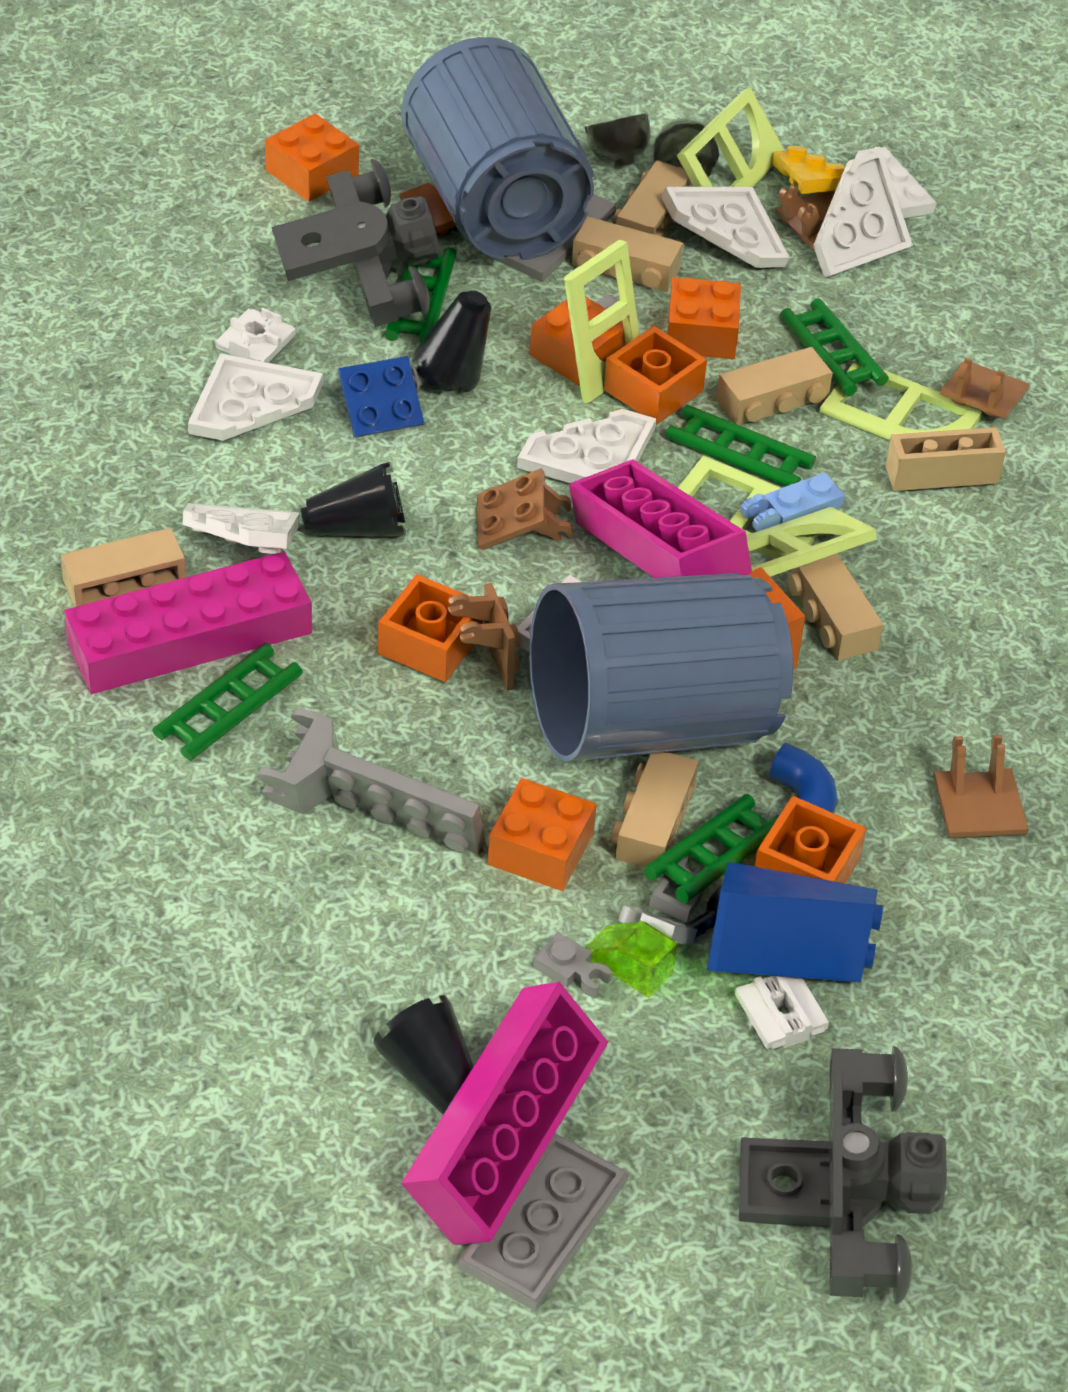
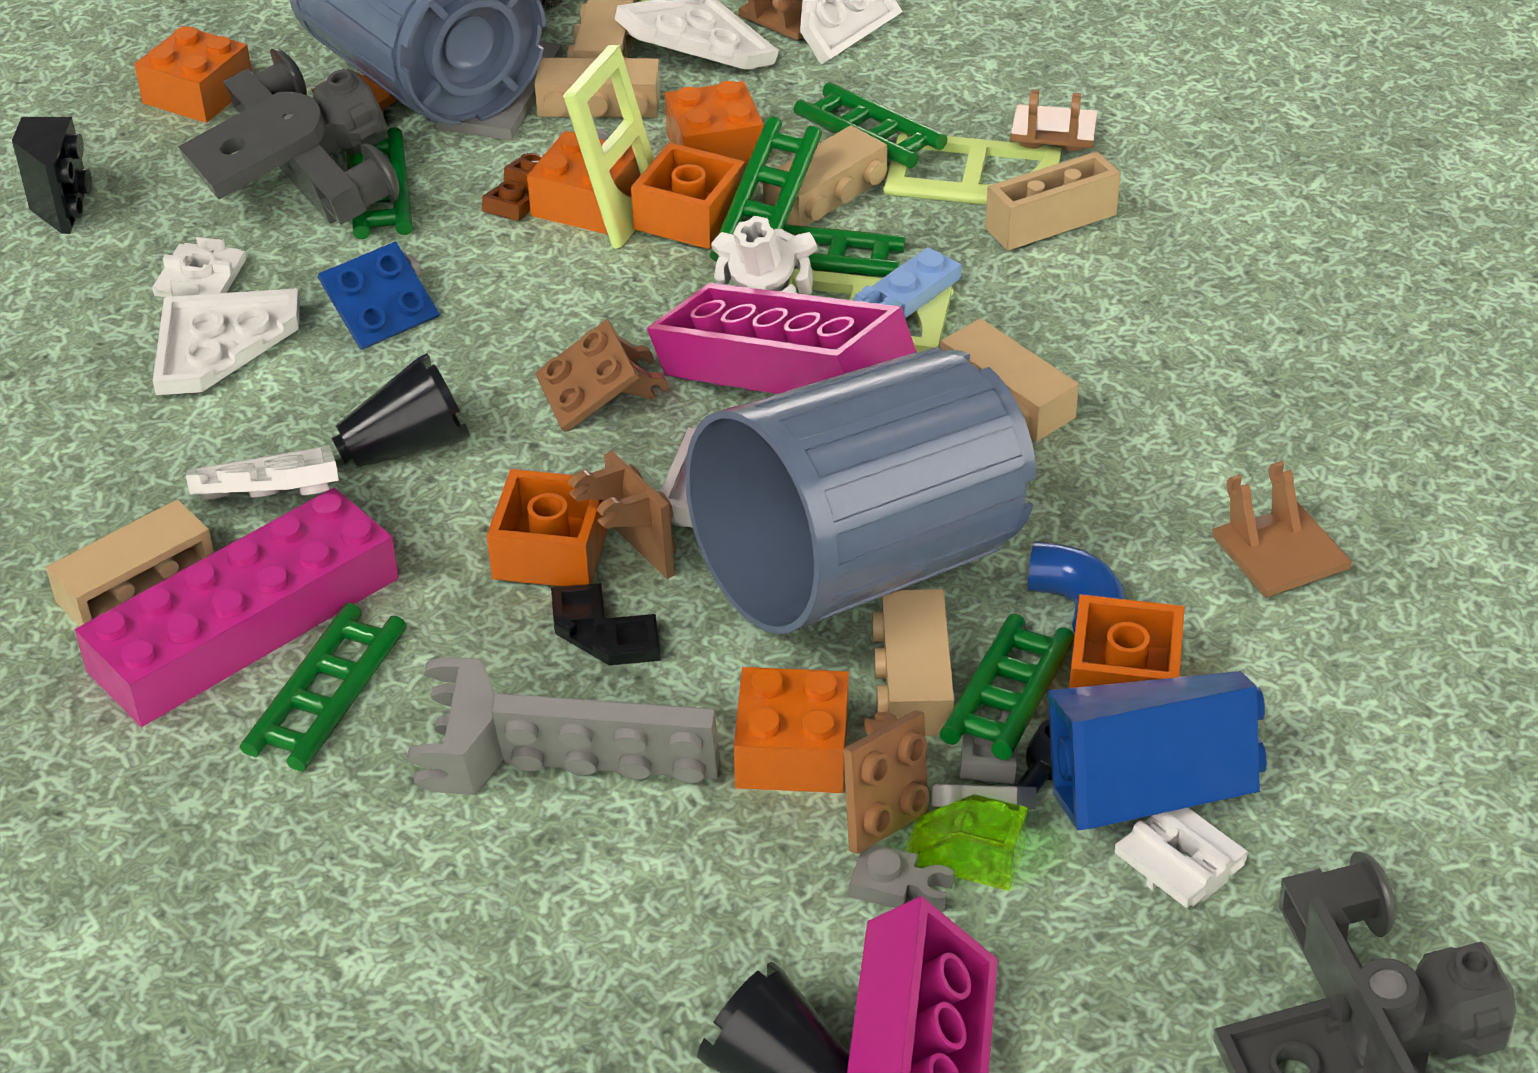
camera: 15 degrees left, 5 degrees down
(172, 219) = (52, 169): none -> black slope
(446, 727) = (616, 640): none -> black tile
(456, 344) = (448, 213): black cone -> none
(517, 335) = (512, 195): none -> dark orange slope
(586, 891) = (885, 778): none -> medium nougat plate
(588, 446) = (643, 290): white plate -> none
(683, 453) = (764, 257): none -> white piece
(714, 412) = (758, 172): none -> green bar
(800, 553) = (955, 295): yellowish green window -> none

